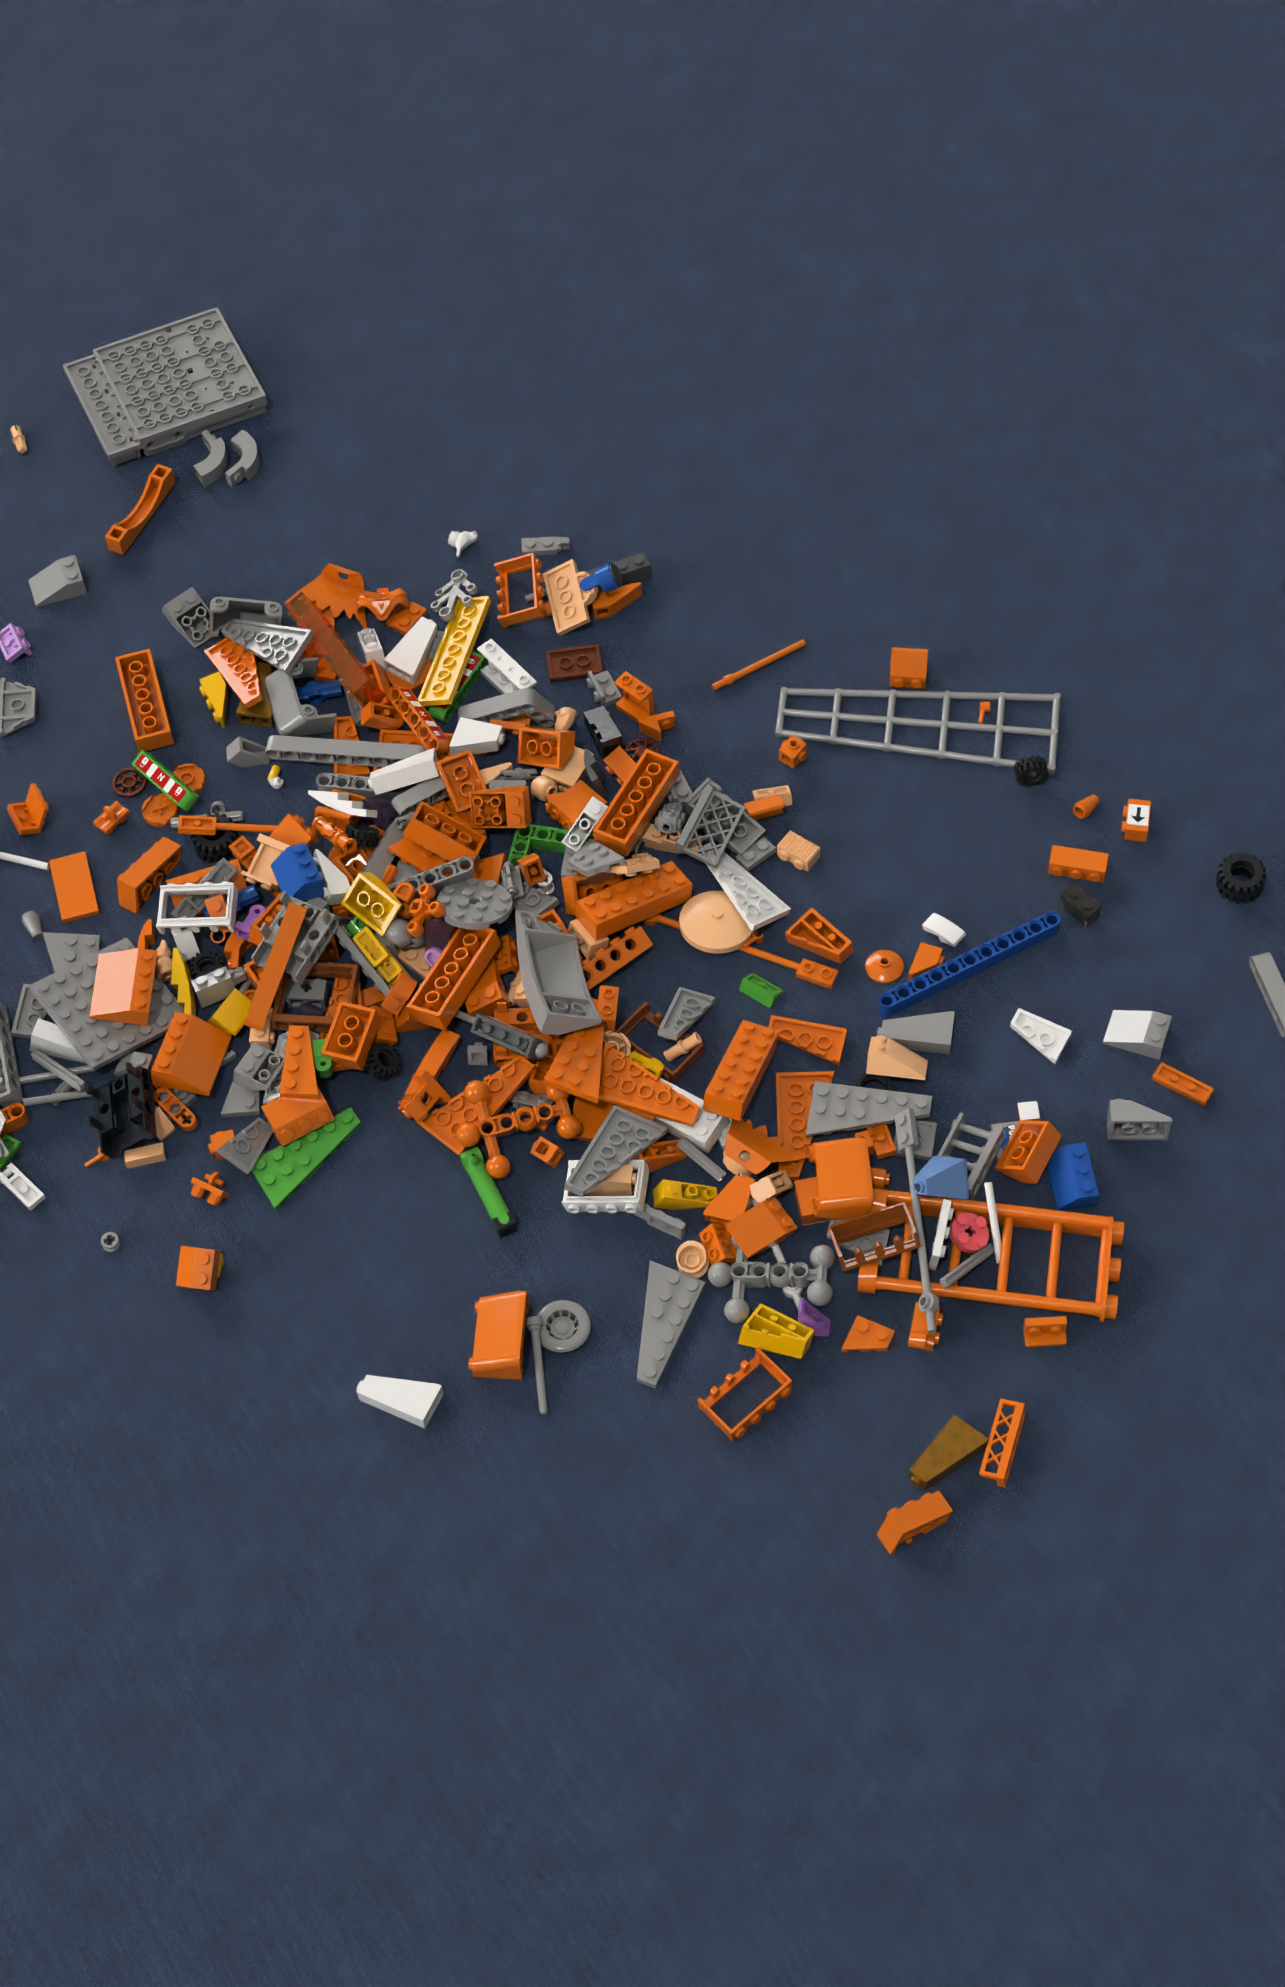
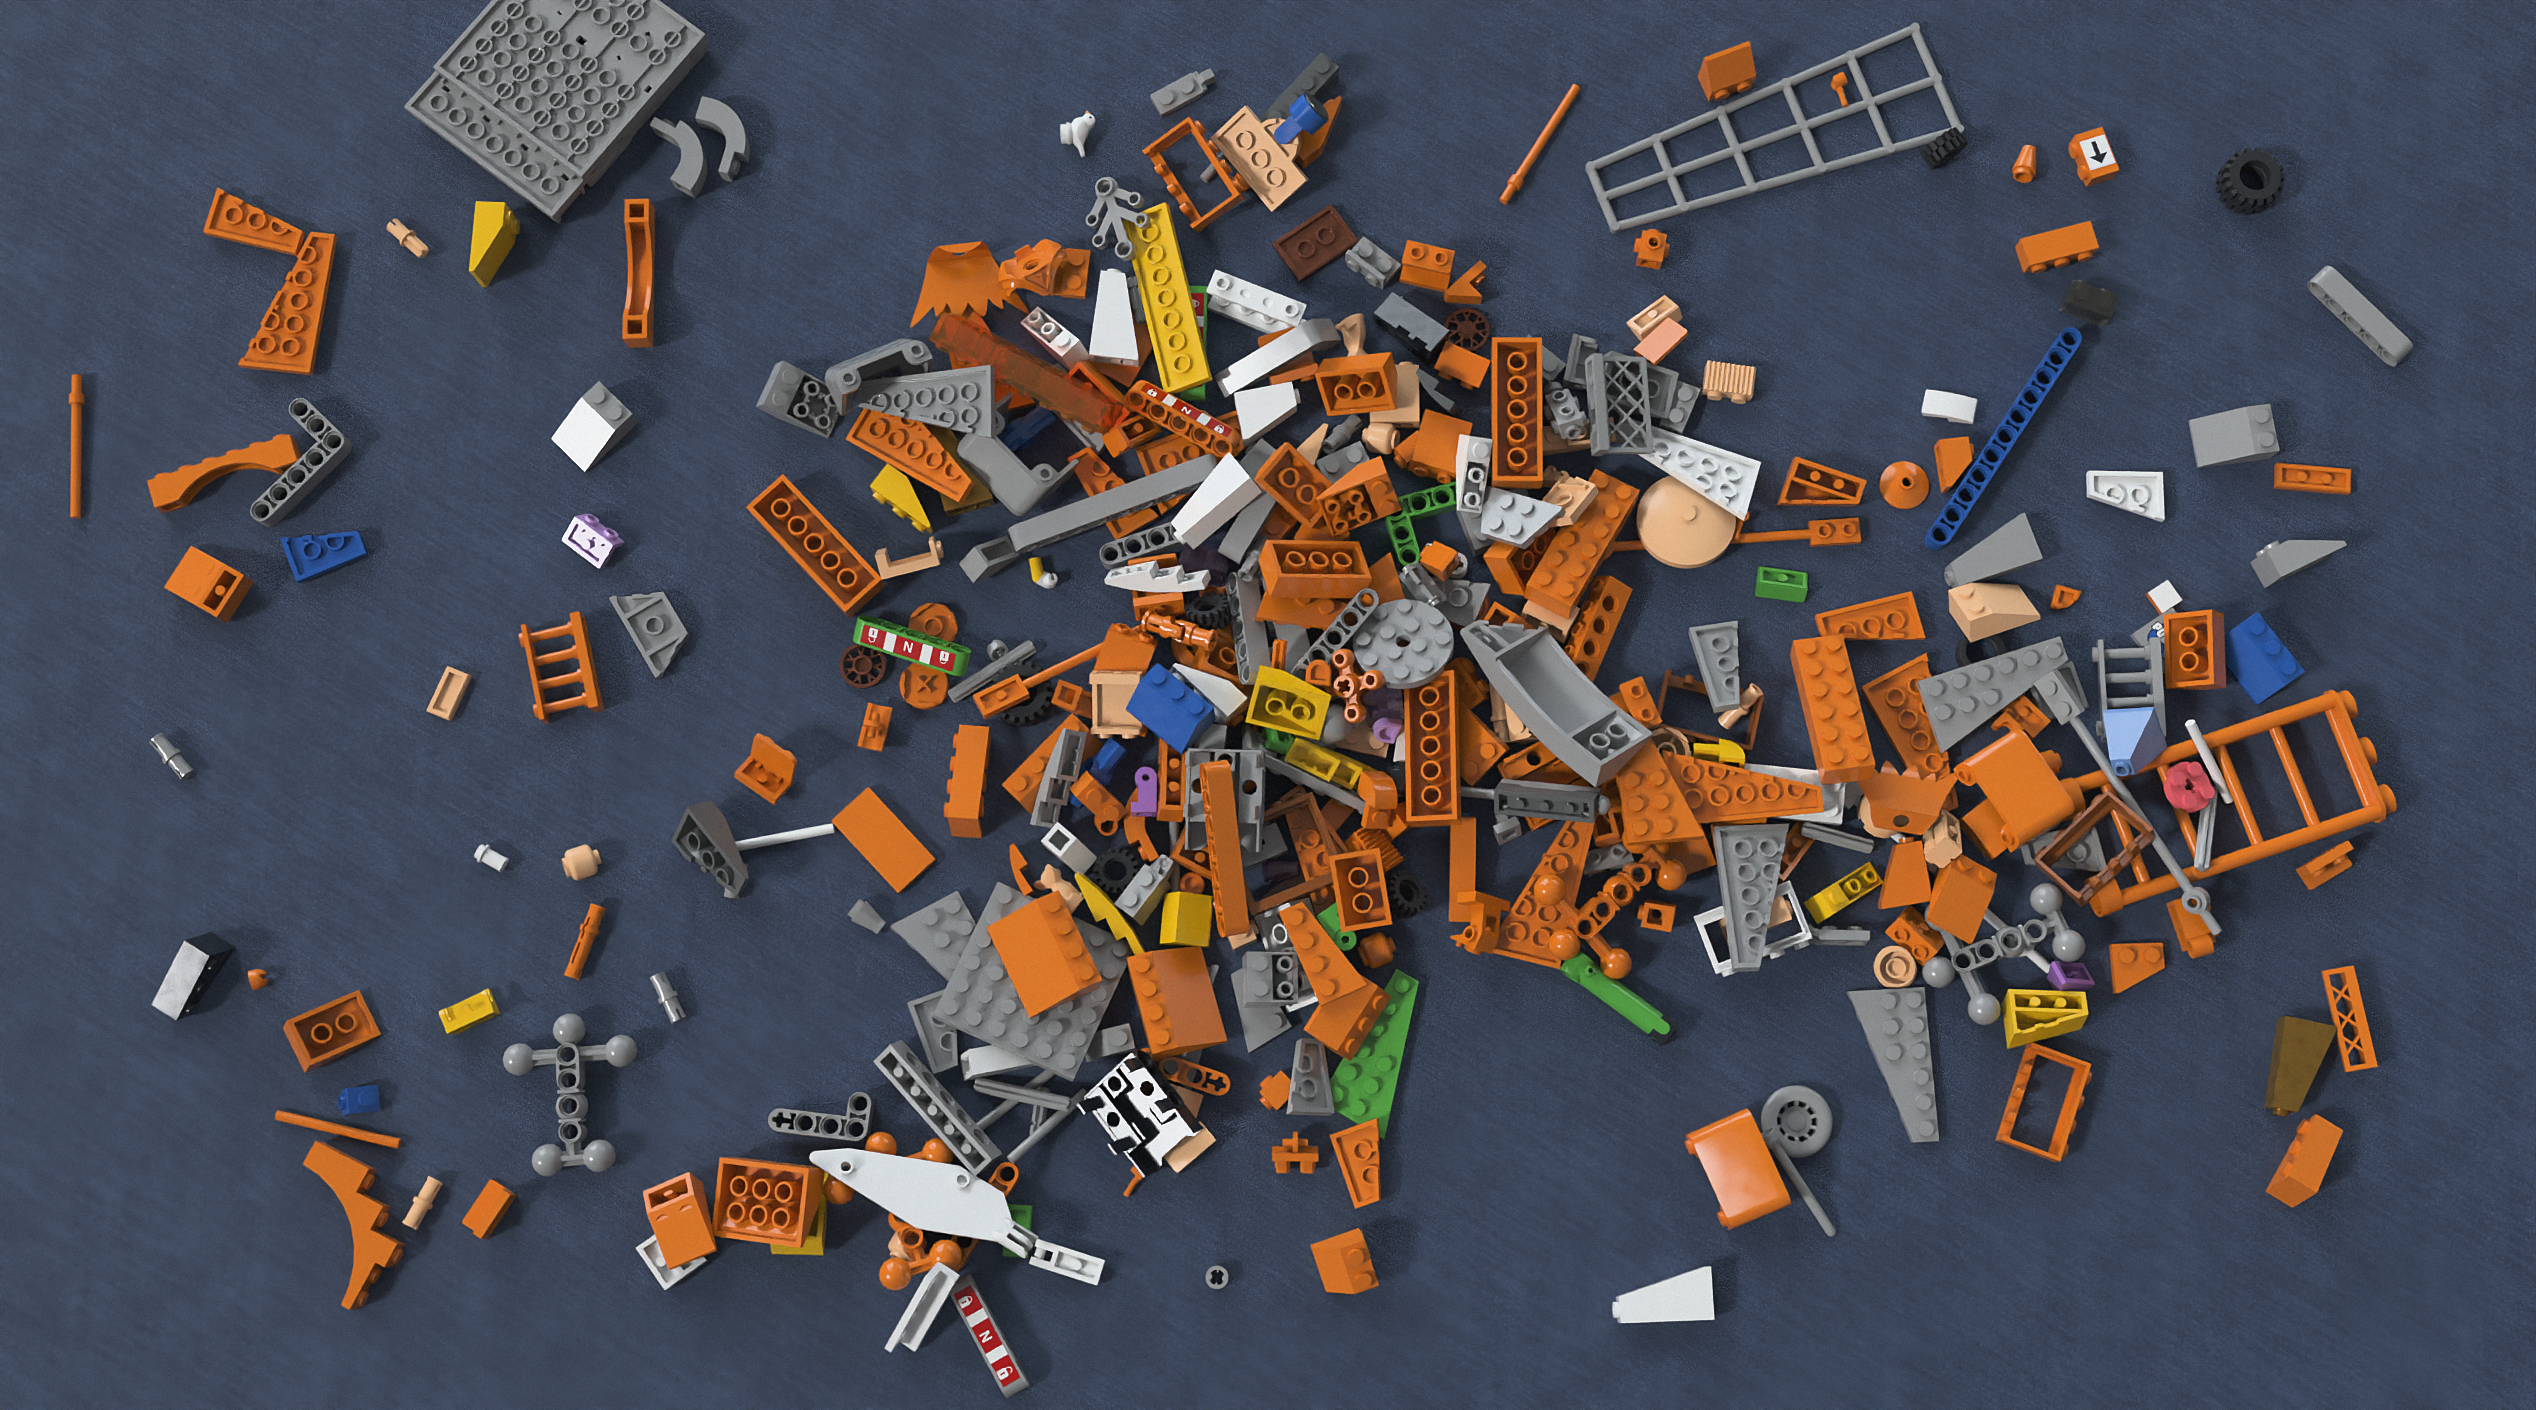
camera: 30 degrees left, 20 degrees up
(64, 456) = (492, 239): none -> yellow slope
(179, 727) = (914, 563): none -> light nougat panel
(195, 923) = (1070, 780): white window -> none
(249, 1211) = (1360, 1161): none -> orange wing
(344, 1089) = (1376, 950): none -> orange head
(942, 1232) = (2163, 805): white wing -> none
(955, 1082) = (2063, 597): none -> orange tile

